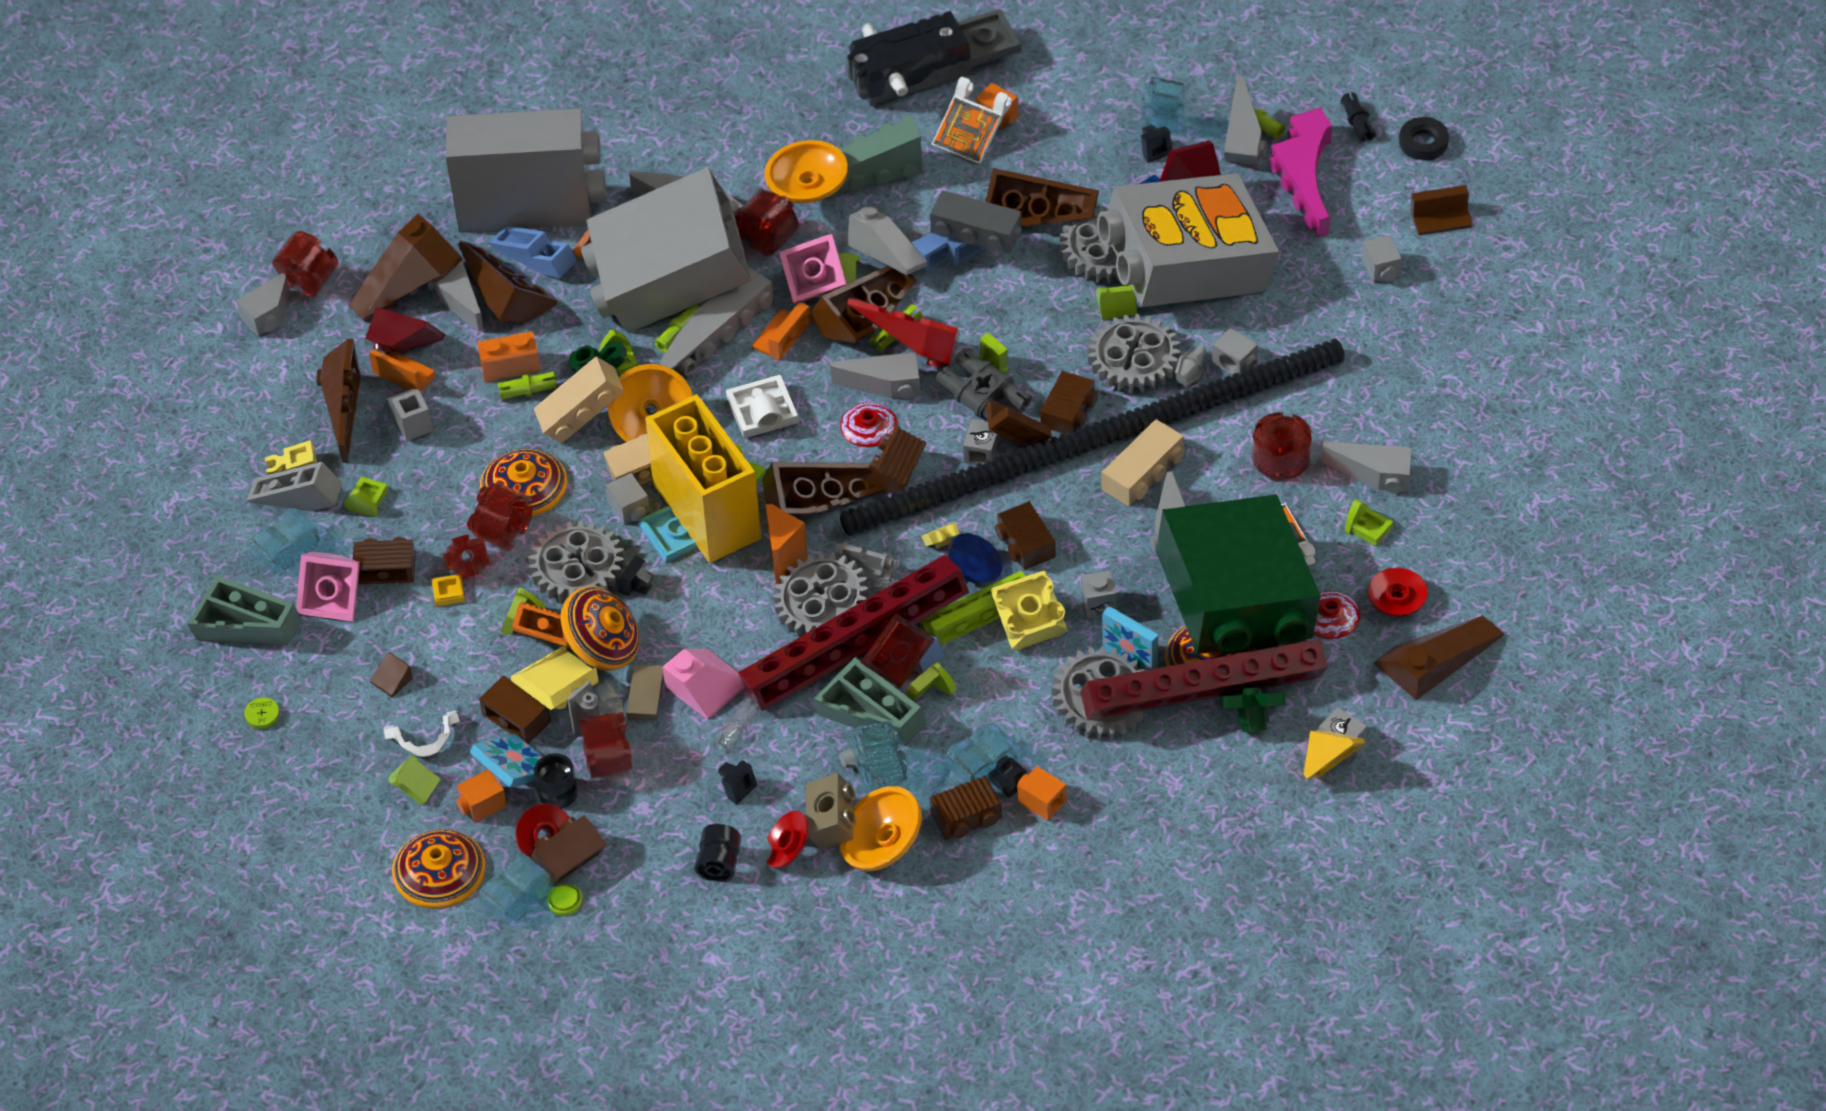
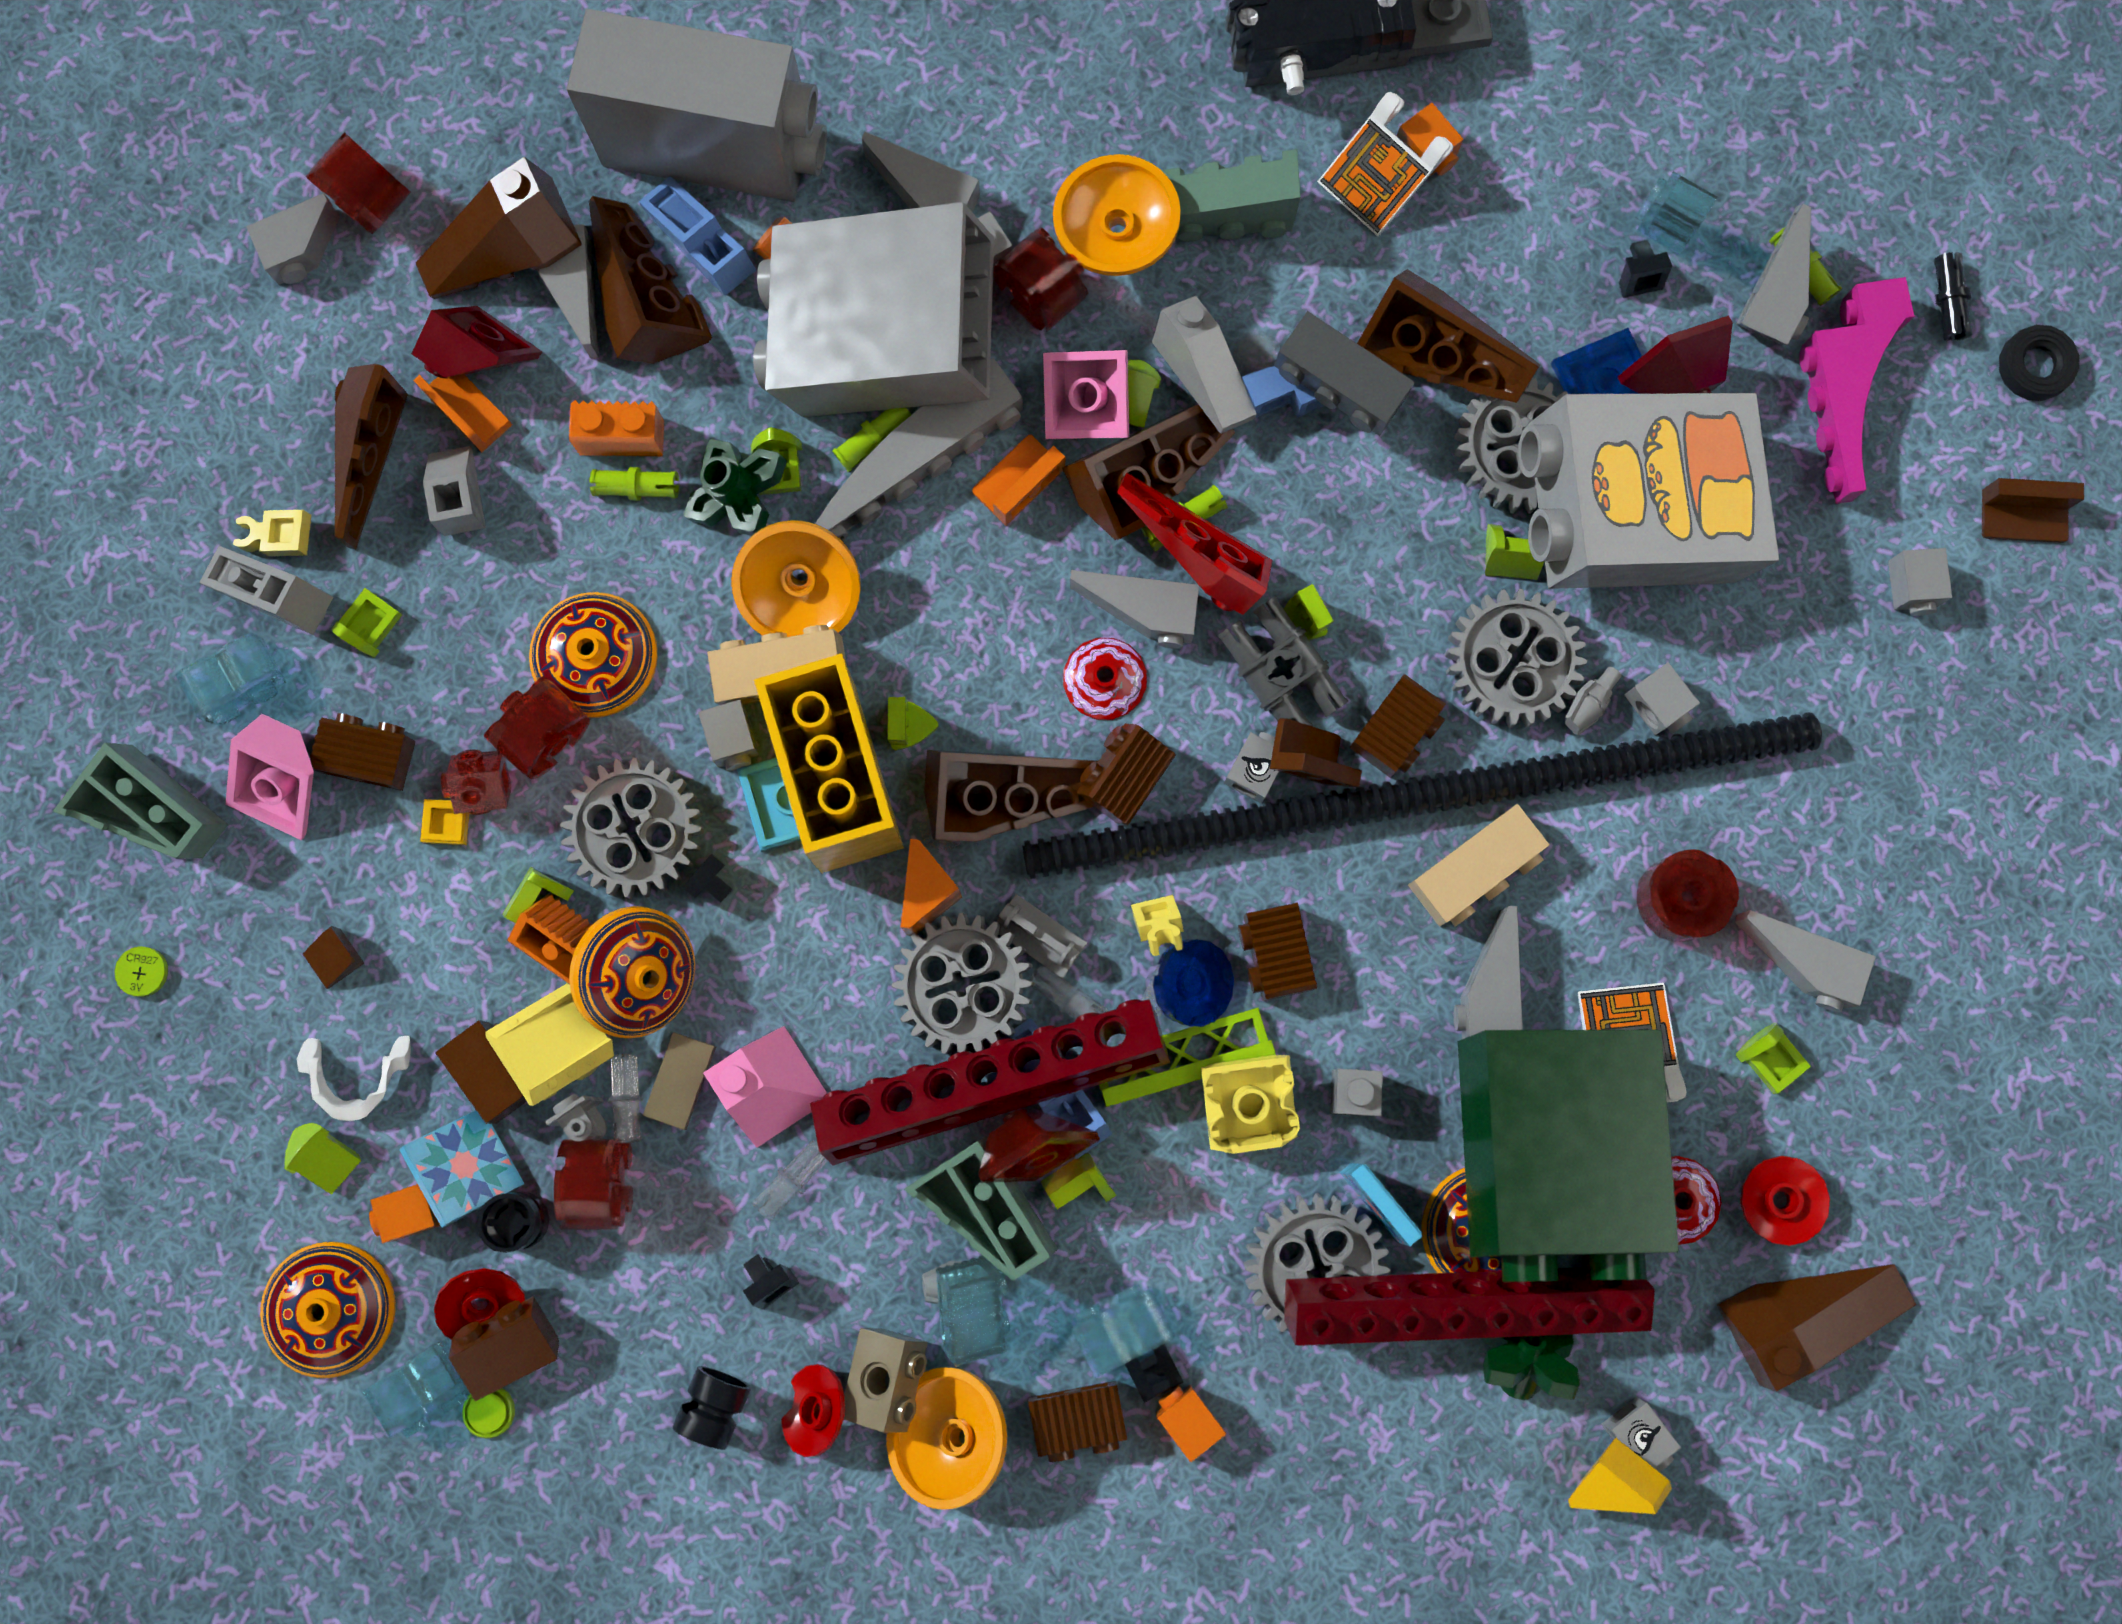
camera: 10 degrees right, 30 degrees up
(578, 400) = (692, 552): tan brick -> none
(762, 406) = (959, 611): white plate -> none

